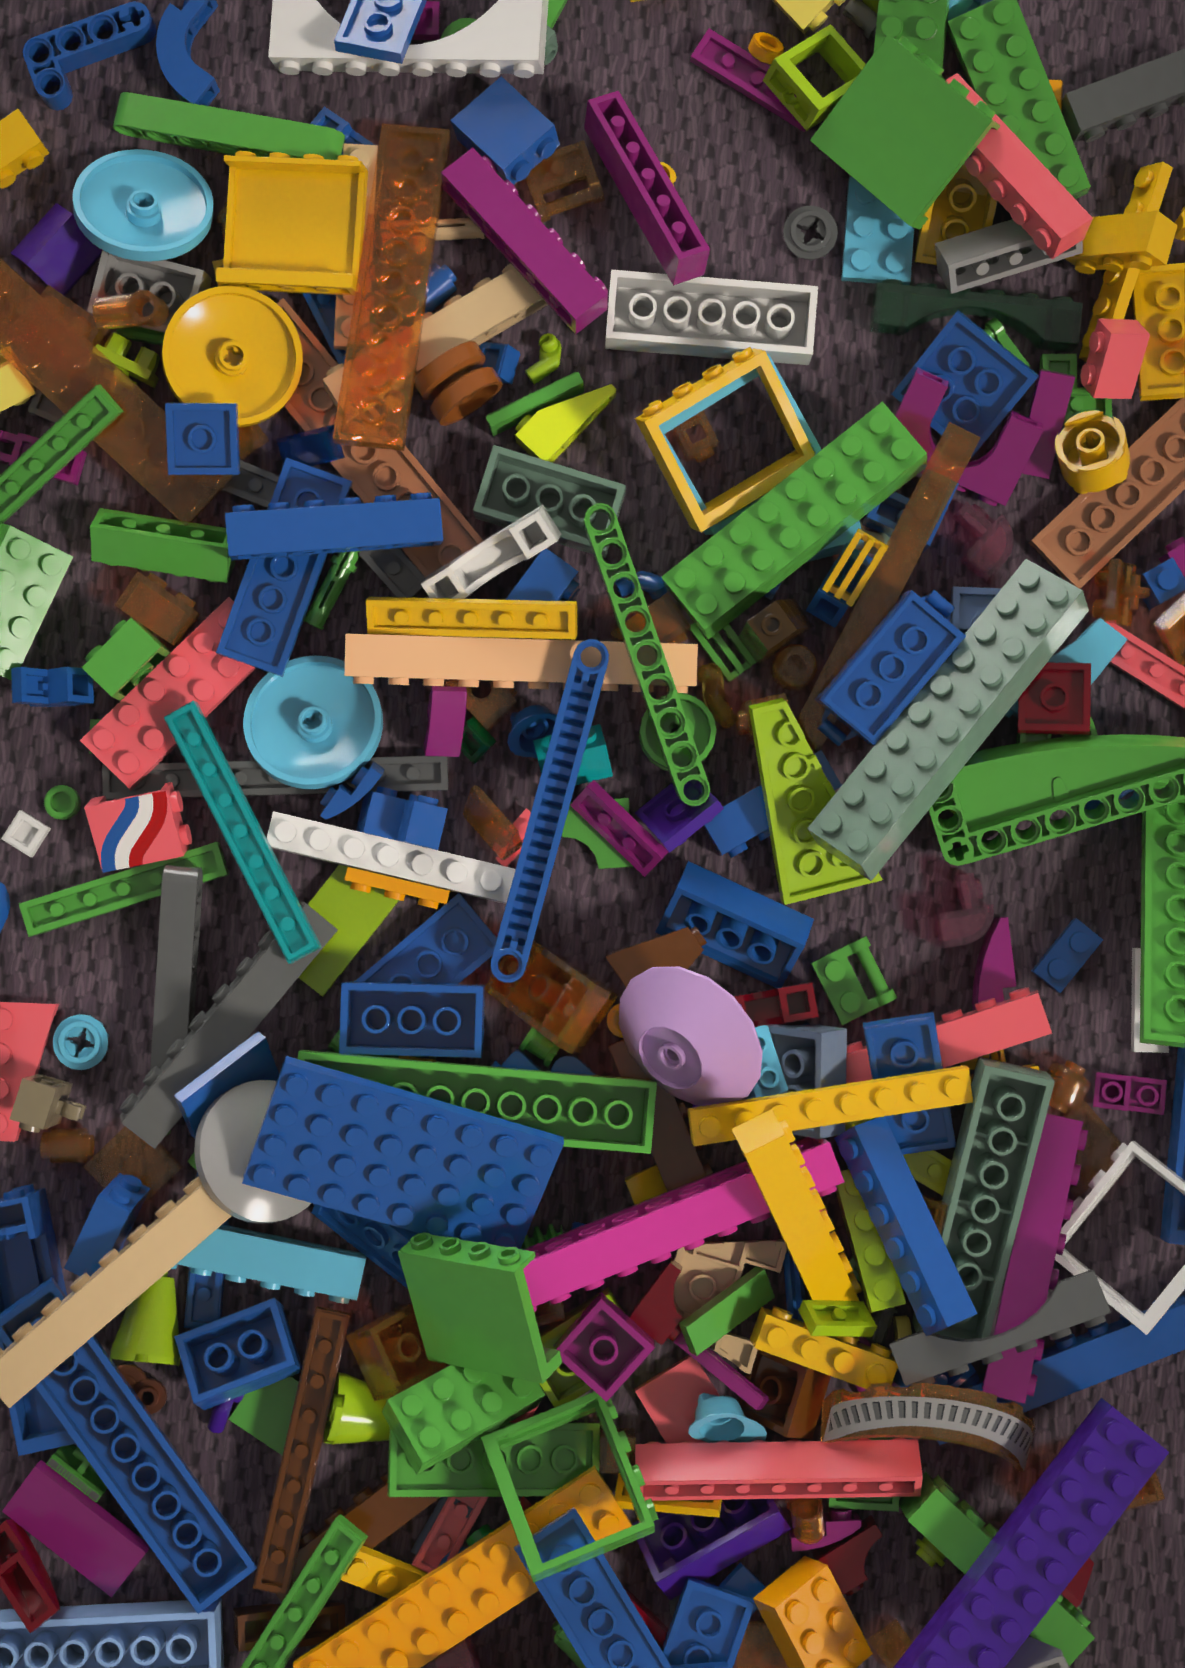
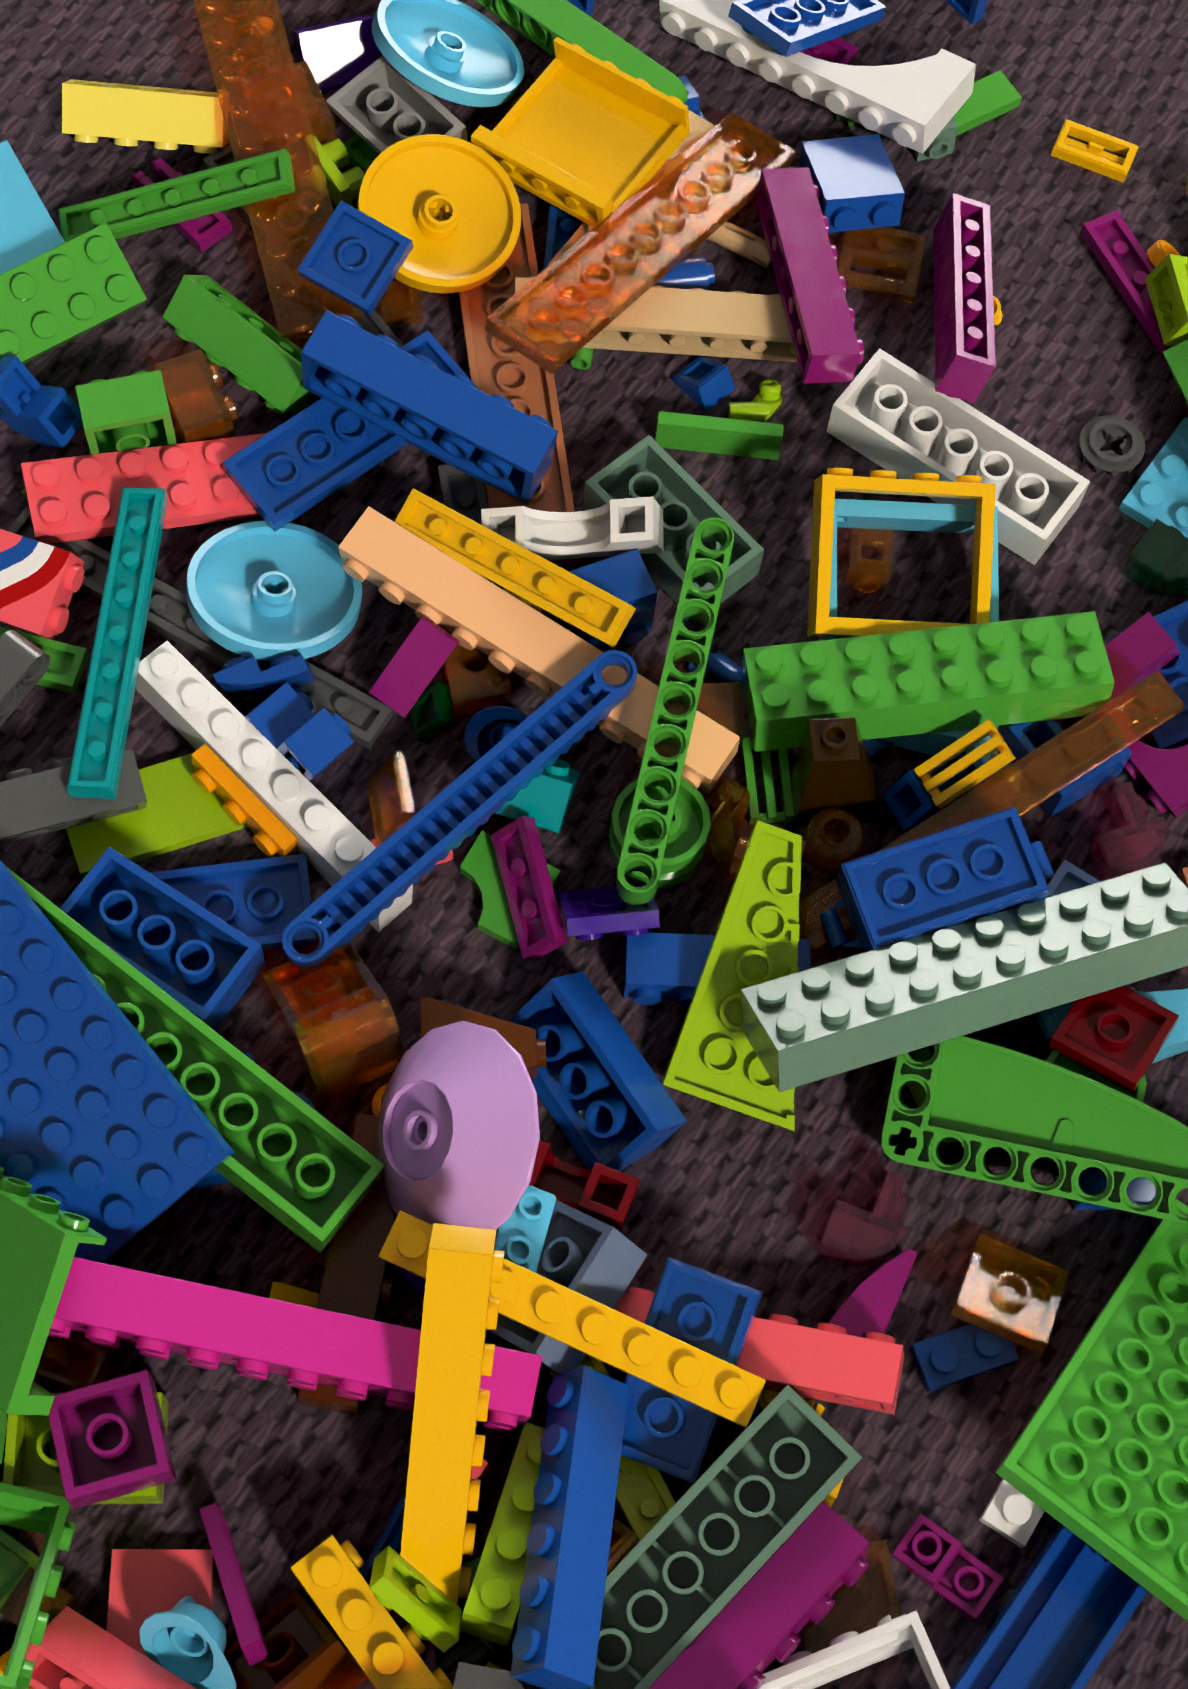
camera: 25 degrees right, 20 degrees down
(127, 310) = (374, 116): clear orange piece -> none
(311, 447) = (464, 343): clear blue tile -> none
(316, 615) = (412, 471): bright green pin -> none
(457, 383) = (650, 364): dark orange wheel -> none
(539, 1046) = (281, 1064): bright green bush -> none
(560, 424) = (741, 468): neon yellow slope -> none
(657, 1309) = (209, 1450): dark red arch -> none
(712, 1270) = (278, 1477): tan wing -> none
(726, 1310) = (287, 1511): bright green tile -> none
(843, 985) = (674, 1221): bright green plate -> none
(1069, 1086) = (872, 1504): clear orange head -> none
(1076, 904) = (1010, 1293): none -> clear orange plate

